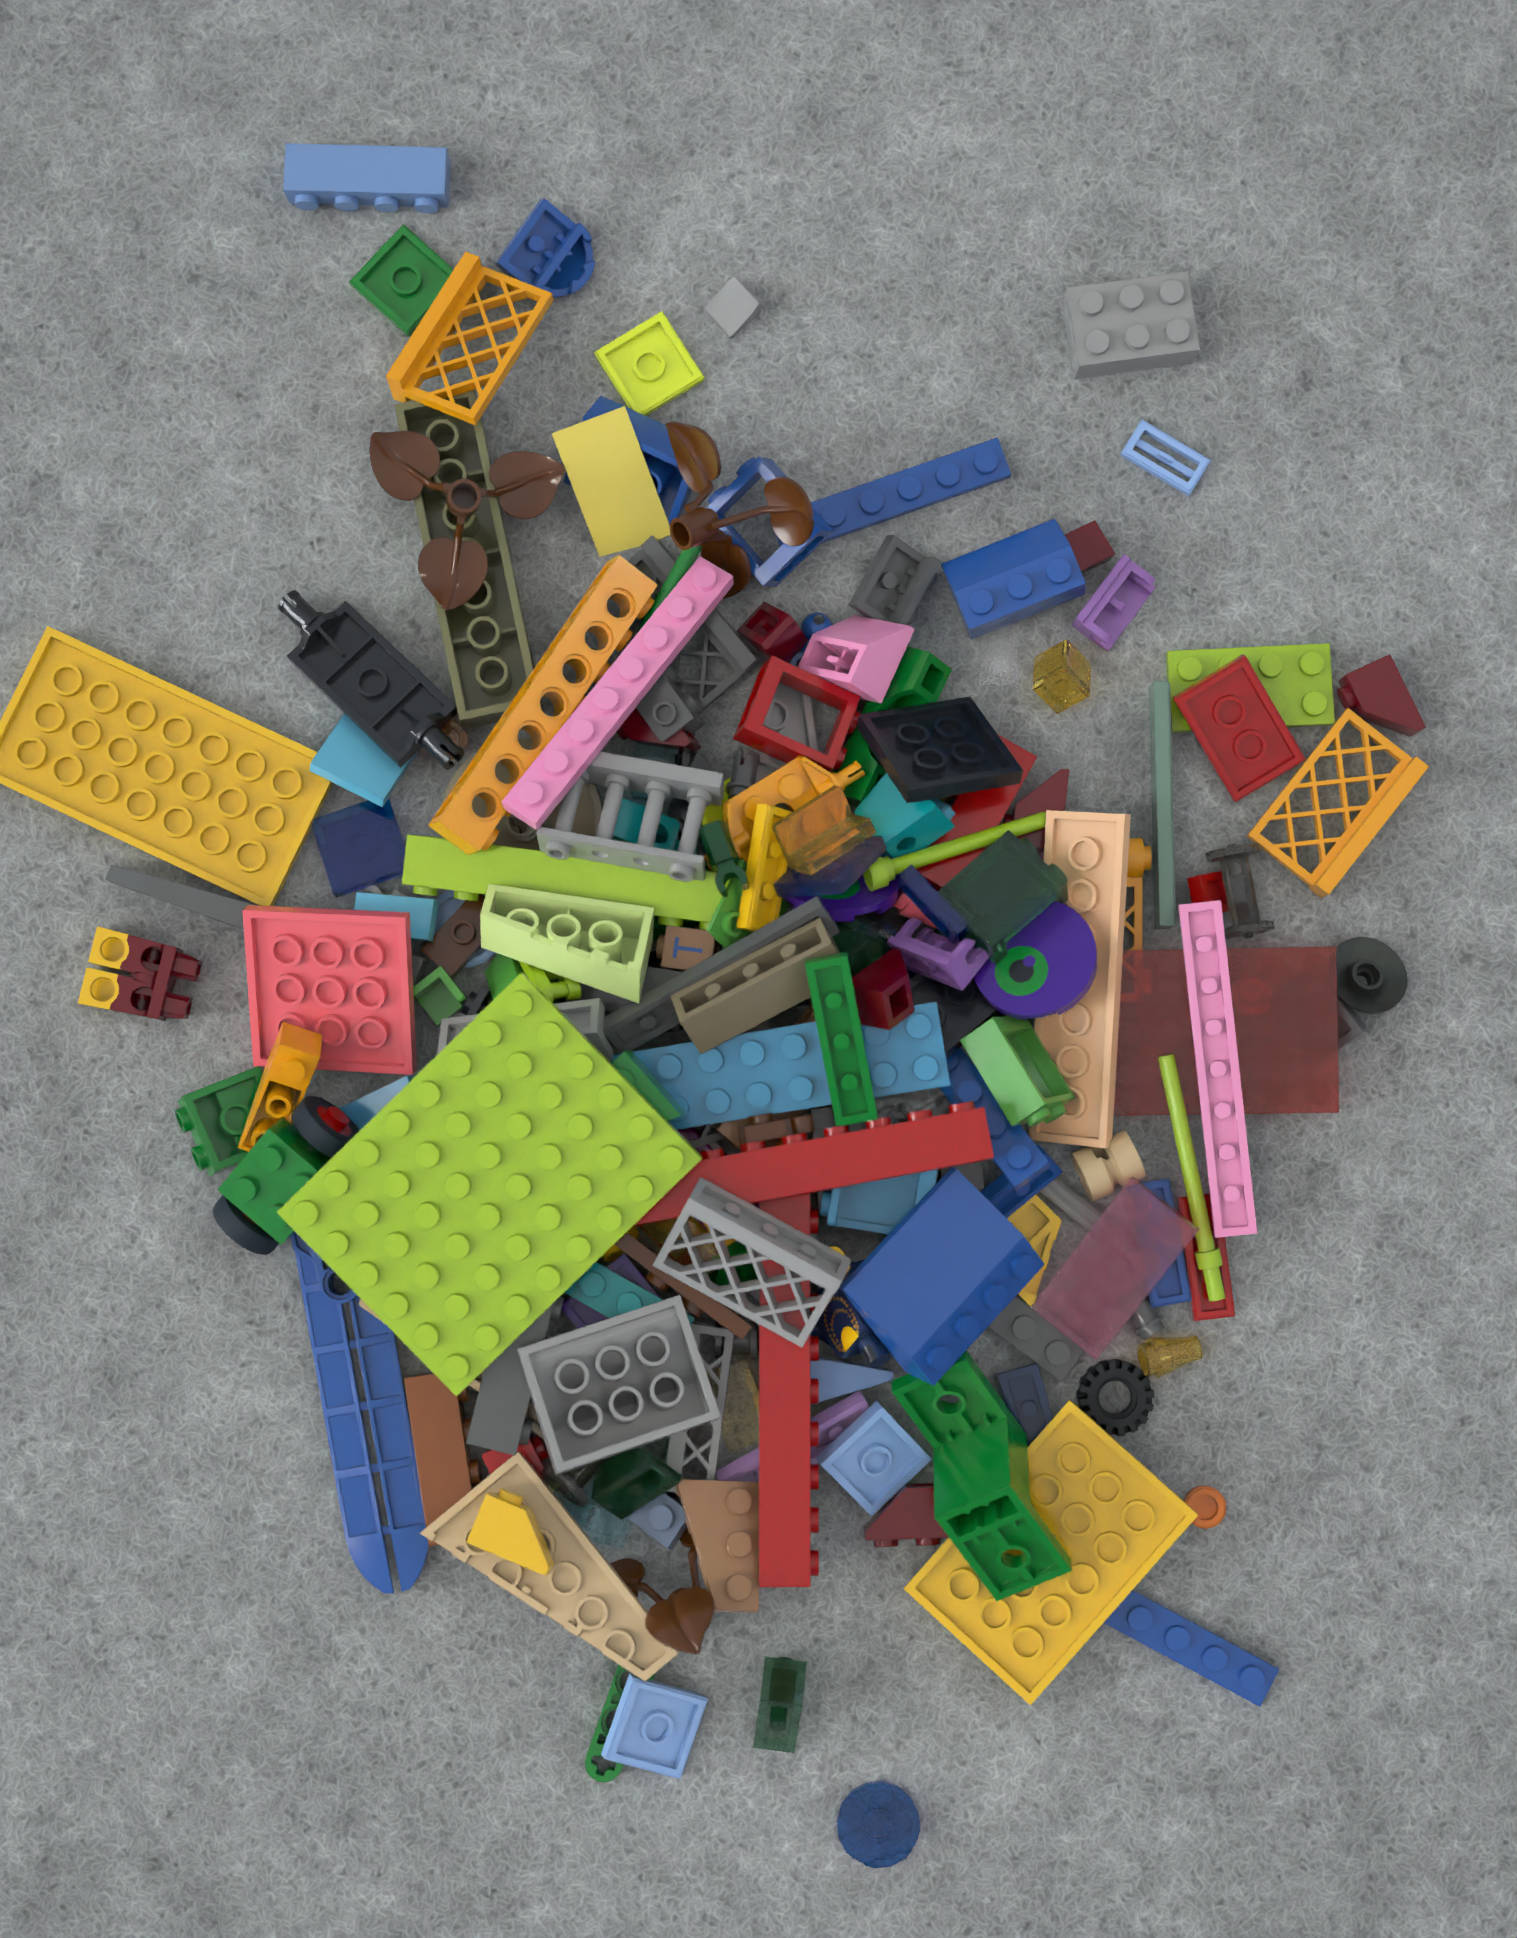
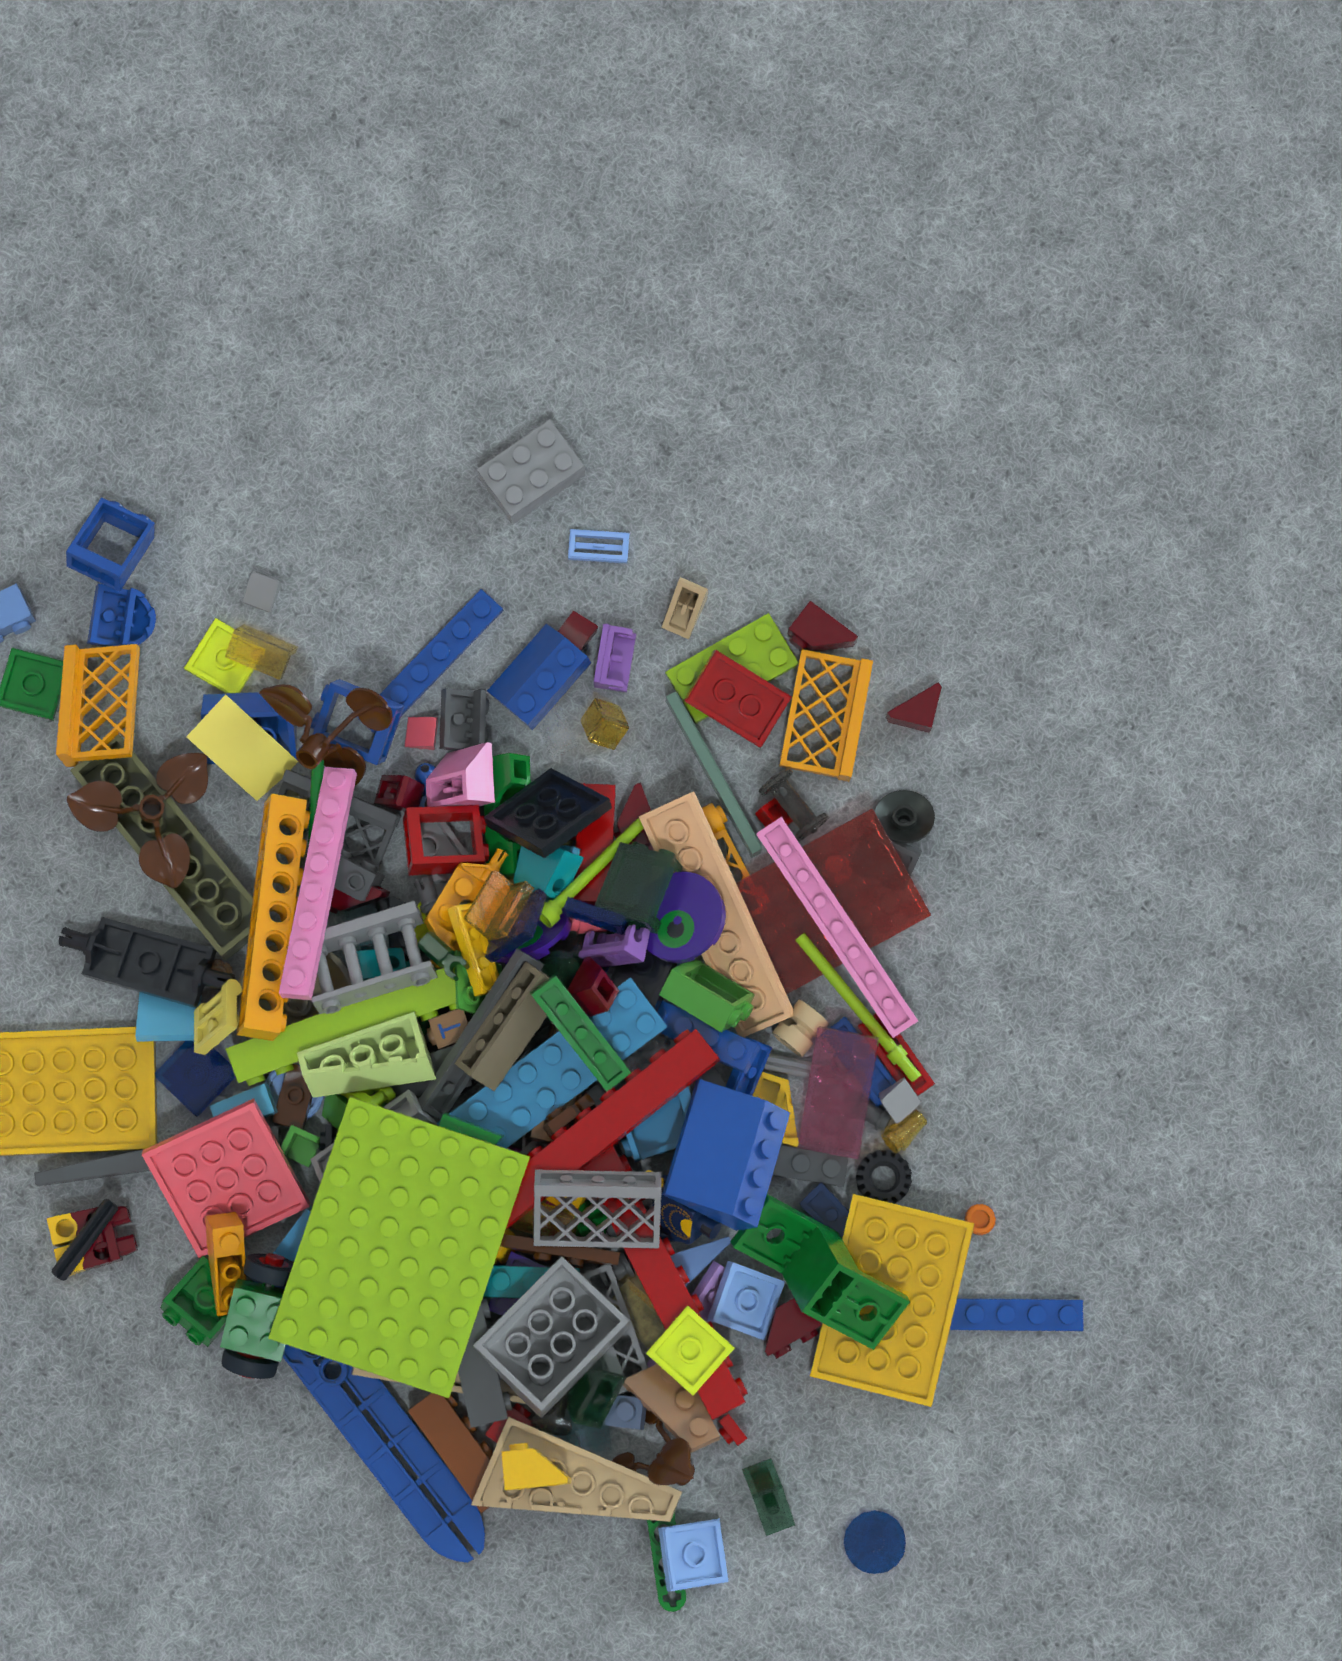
camera: 30 degrees left, 5 degrees down
(127, 975) = (84, 1239): none -> black axle
(415, 792) = (216, 1018): none -> light yellow plate
(553, 177) = (98, 567): none -> blue window
(694, 377) = (260, 651): none -> clear yellow panel
(775, 1491) = (690, 1350): none -> neon yellow tile
(775, 1605) = (730, 1431): none -> red plate
(837, 574) = (421, 732): none -> coral slope
(1183, 1314) = (899, 1100): none -> light grey slope
(1232, 585) = (685, 608): none -> tan slope
(1450, 856) = (918, 711): none -> dark red slope

